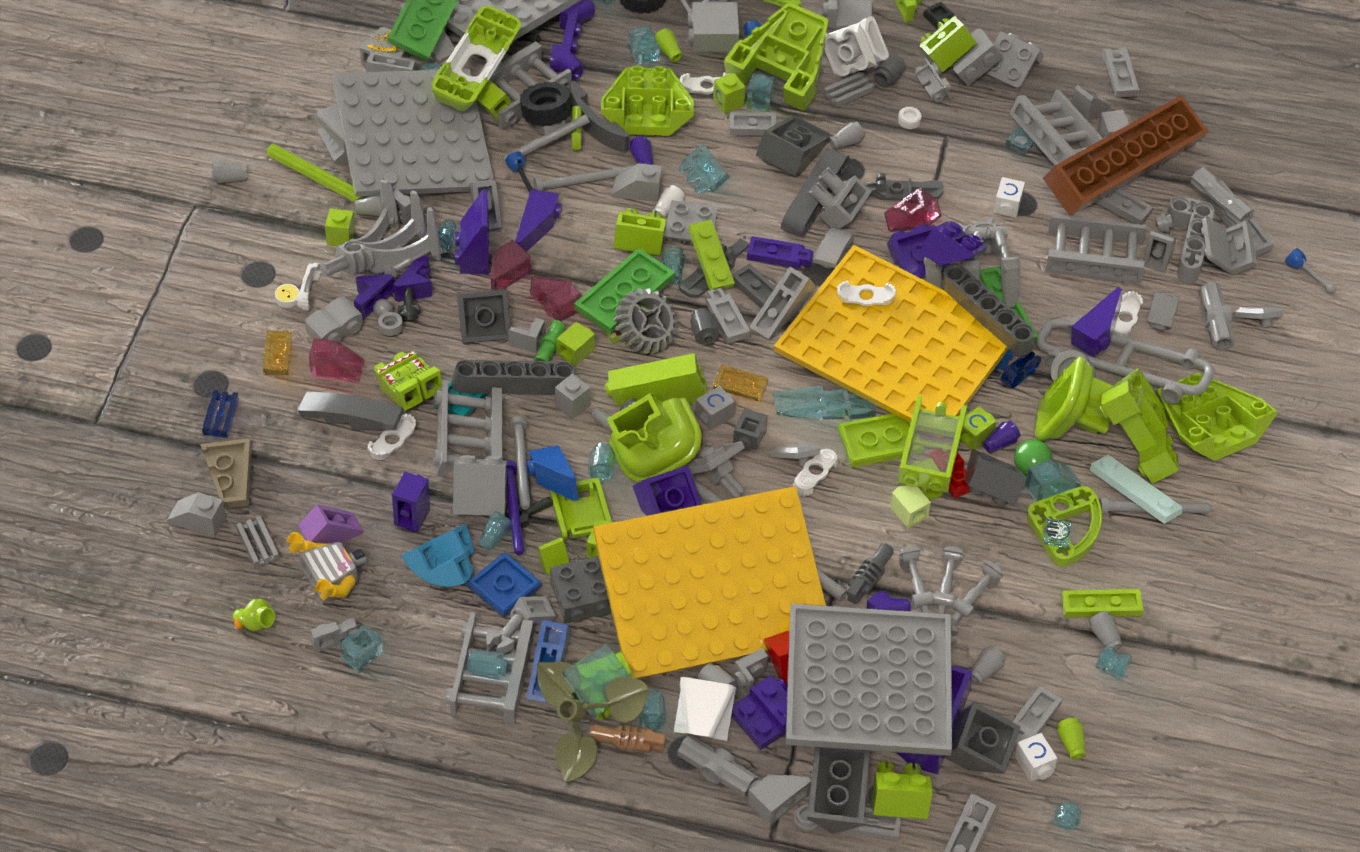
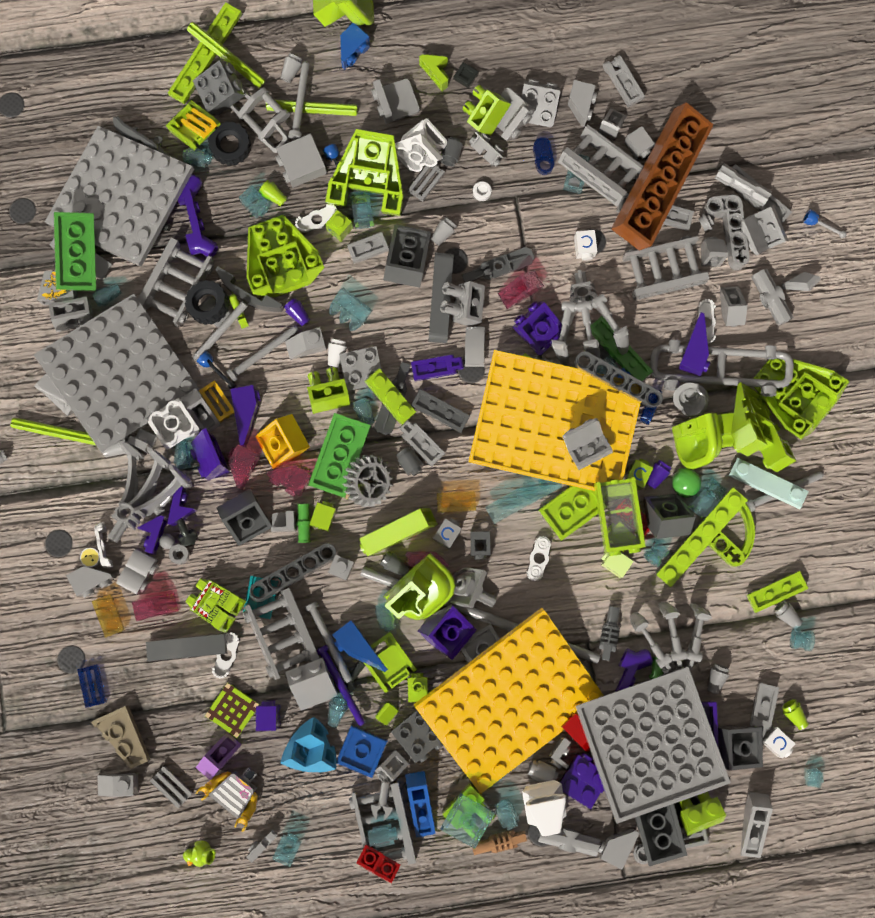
camera: 25 degrees left, 30 degrees up
(276, 311) = (87, 579): none -> light grey slope
(339, 226) = (101, 481): lime brick -> none
(368, 492) = (232, 710): none -> tile
(449, 196) = (173, 424): none -> white piece
(465, 692) = (378, 864): none -> red slope
(488, 36) = (136, 260): lime piece -> none
(492, 99) = (162, 312): lime brick -> none
(511, 218) = (225, 414): none -> yellow tile
(566, 256) = (282, 440): none -> yellow slope
(575, 753) = (468, 871): olive plant -> none
(783, 303) = (461, 424): light grey slope -> none
(796, 451) = (520, 549): light grey piece -> none
(850, 294) = (533, 391): white piece -> none
(922, 353) = (587, 443): none -> light grey bracket
(950, 244) = (576, 339): dark purple slope -> none
(963, 512) = (656, 554): none -> clear light blue wheel
(997, 105) = (543, 152): none -> clear blue piece
(1027, 512) = (701, 537): none -> lime plate
(1057, 533) = (728, 547): clear light blue tile -> none
(1064, 70) = (580, 99): none -> light grey slope

